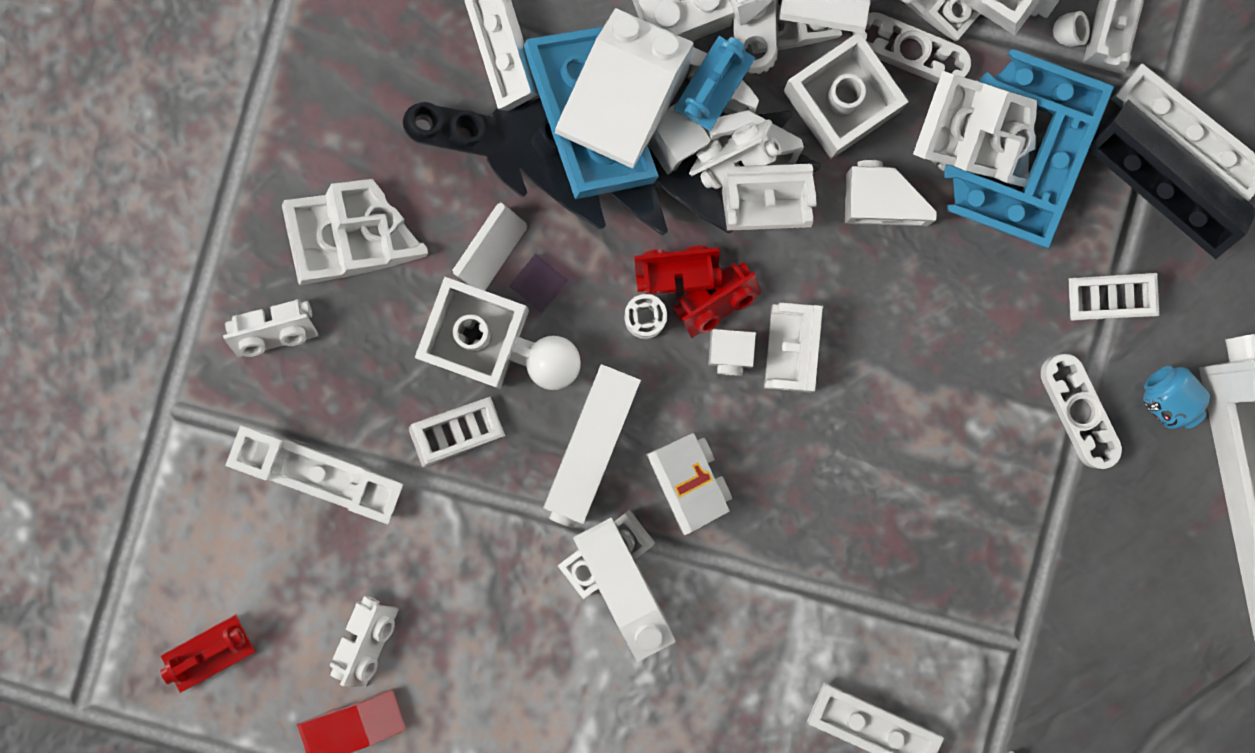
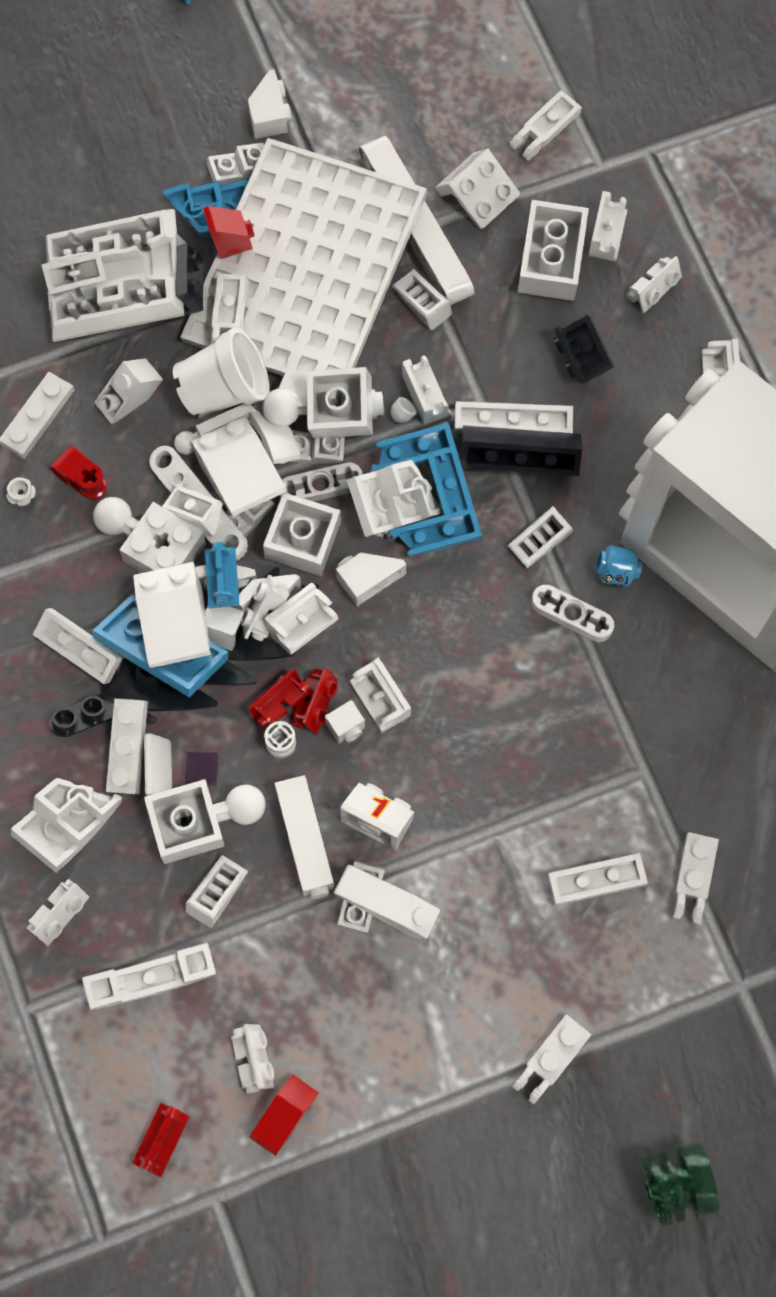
camera: 40 degrees left, 15 degrees down
(472, 200) = (126, 746): none -> white plate

